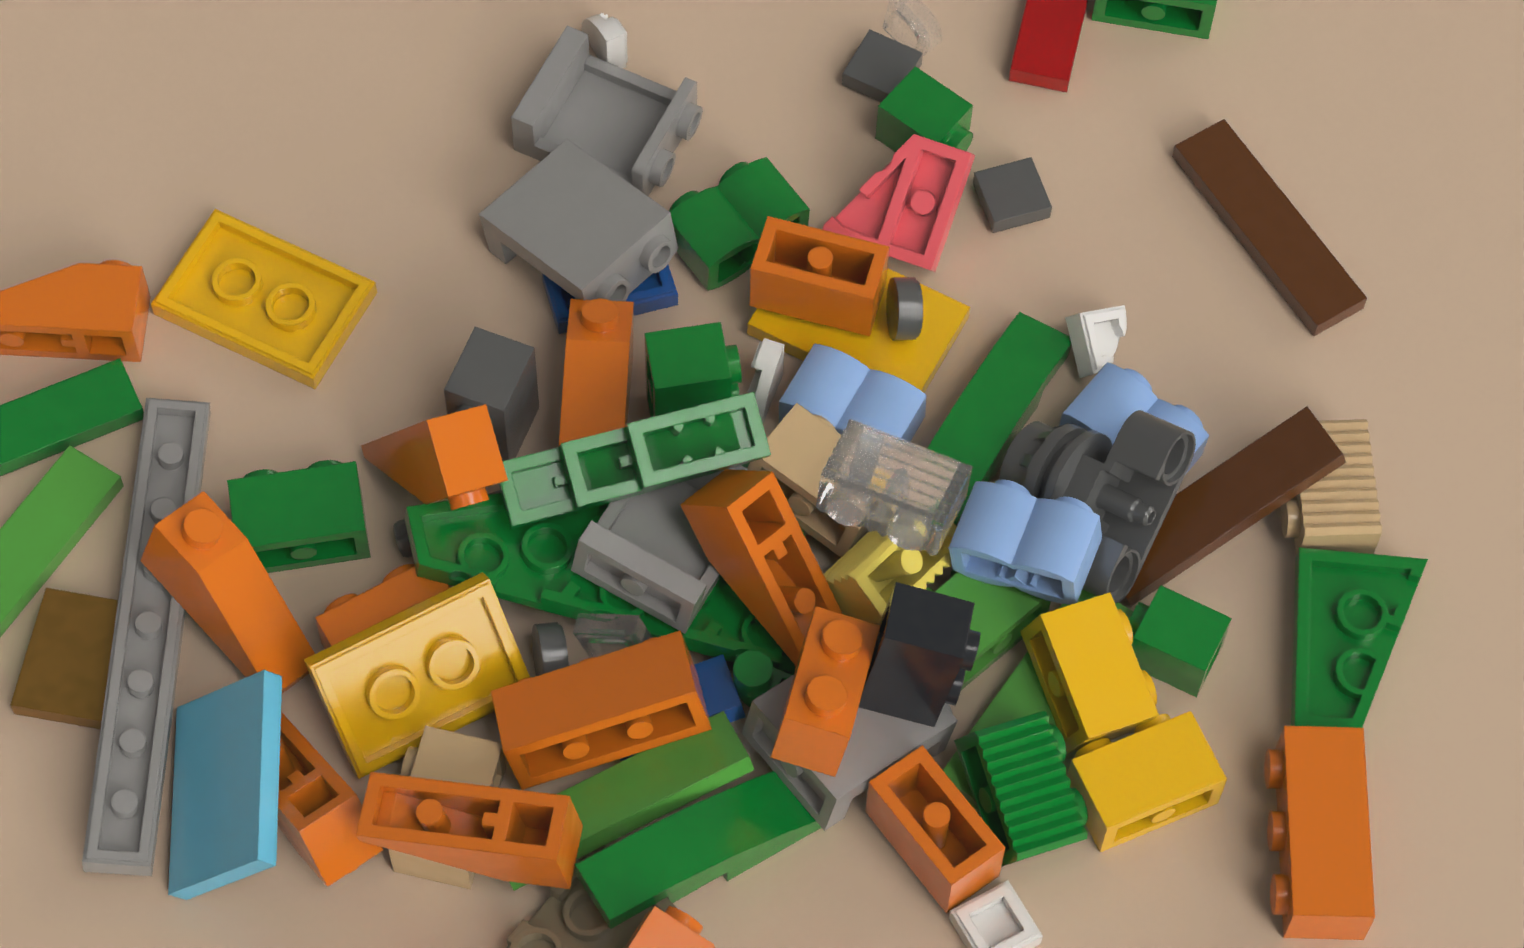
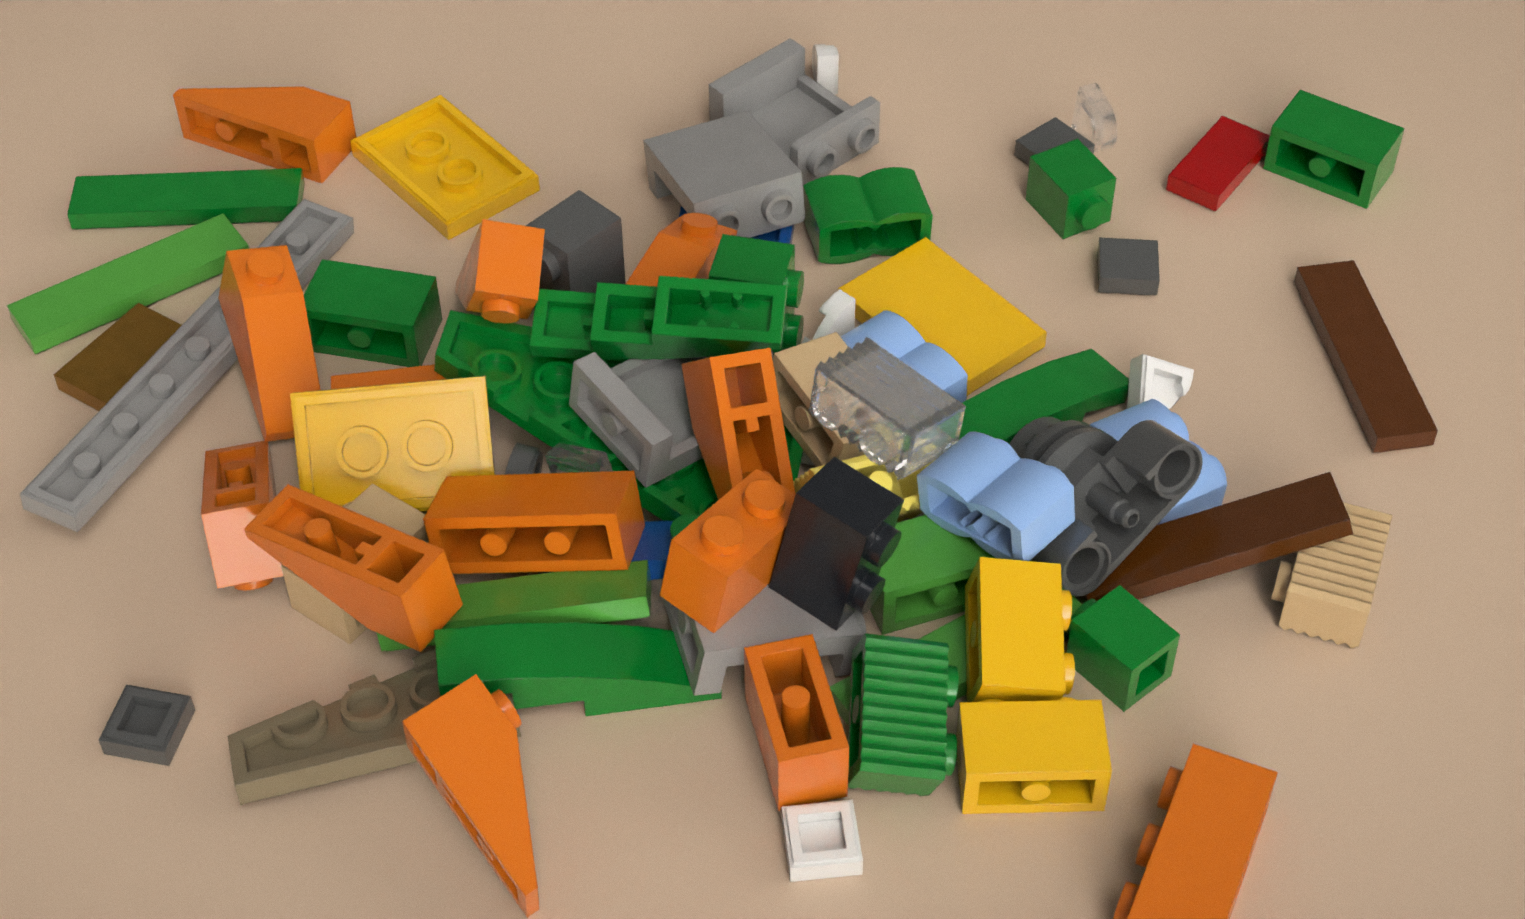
camera: 25 degrees right, 15 degrees down
(226, 786) = (178, 480): medium azure tile -> none
(818, 276) = (911, 254): orange brick -> none
(904, 308) = (980, 306): dark grey tile -> none
(909, 202) = (1025, 237): coral wing -> none
(1345, 631) = (1305, 693): green wing -> none

